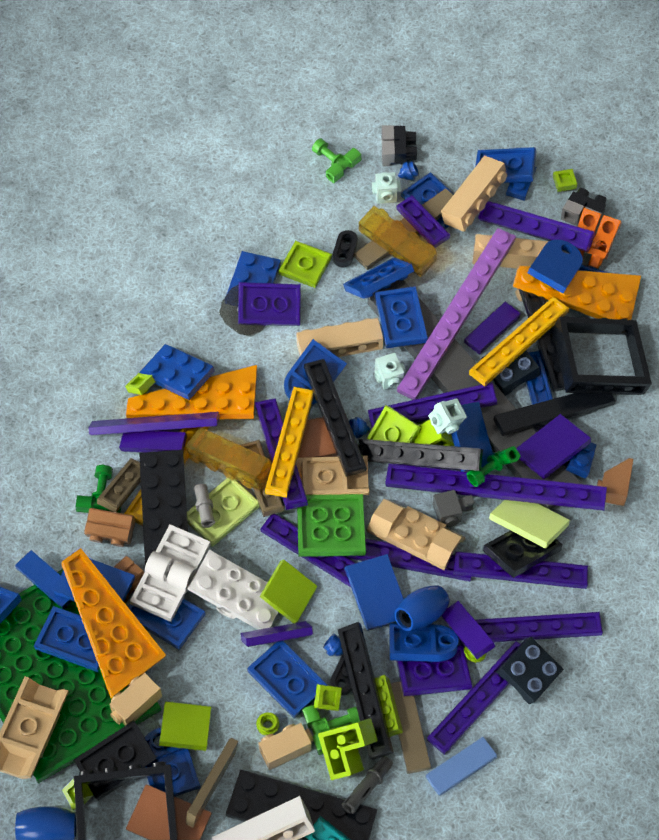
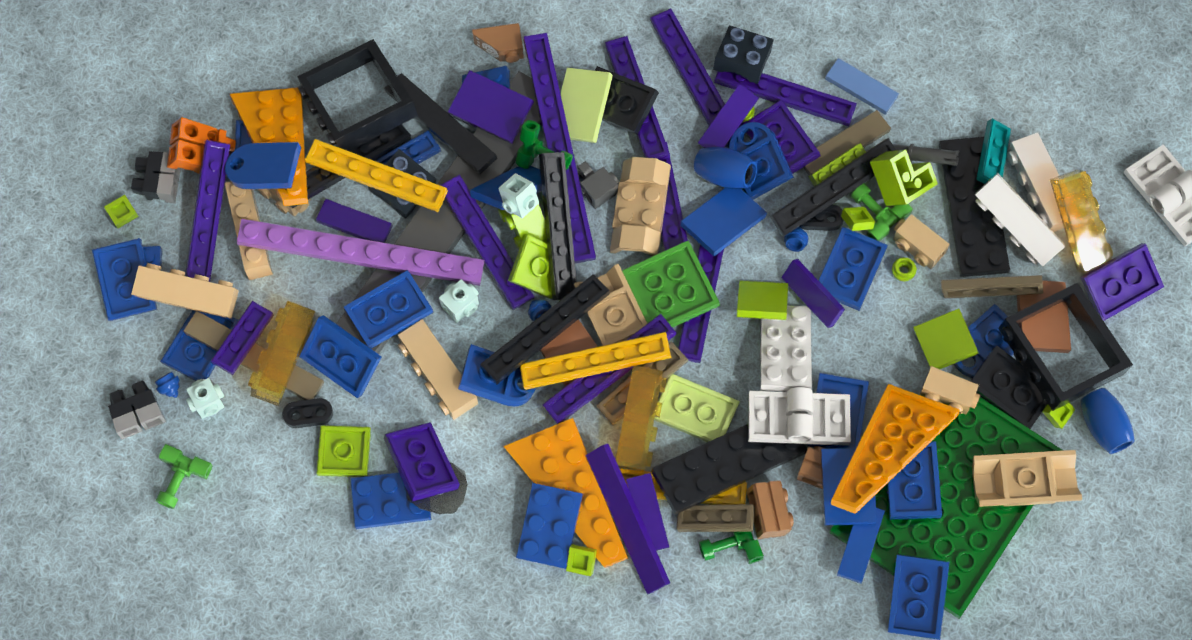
camera: 110 degrees left, 10 degrees up
(204, 505) = (704, 421): light grey pin -> none

